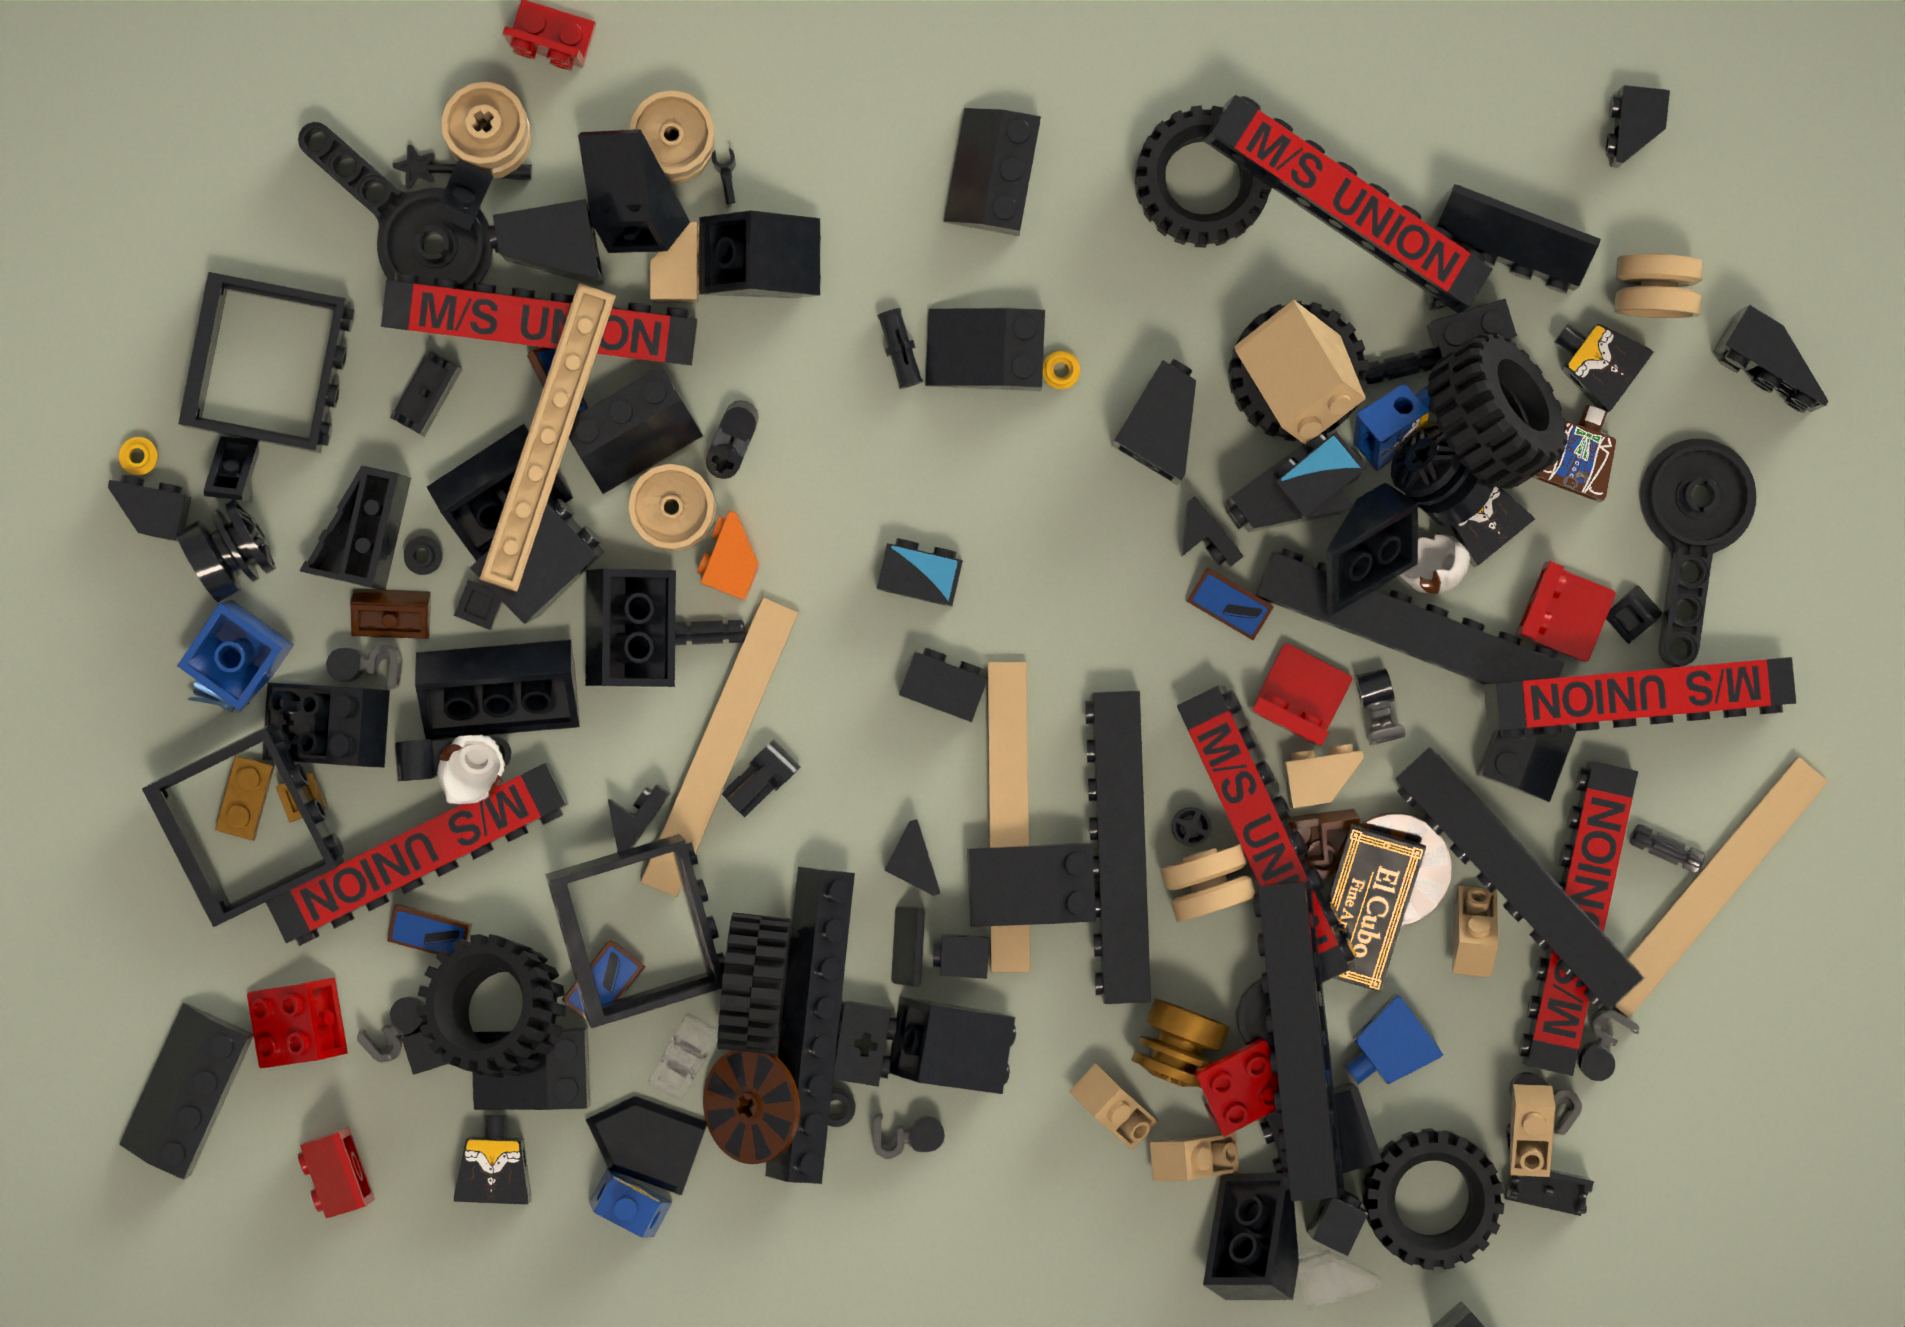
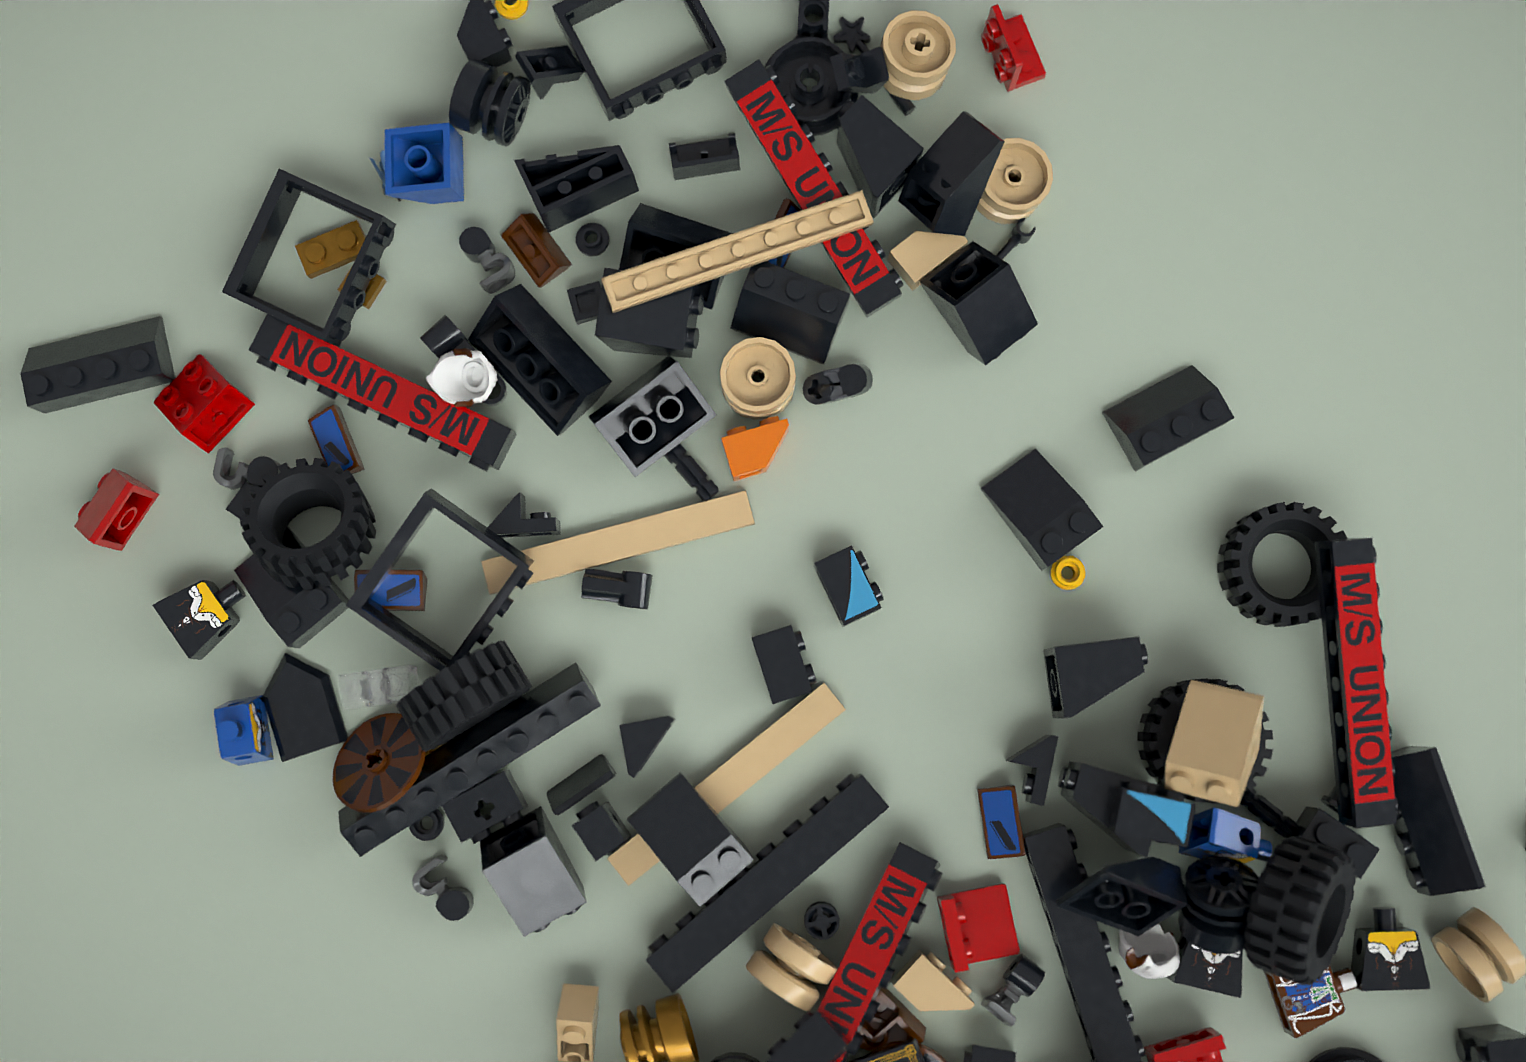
camera: 60 degrees right, 5 degrees down
(330, 723) = (427, 266): black slope -> none
(900, 348) = (992, 449): black pin -> none

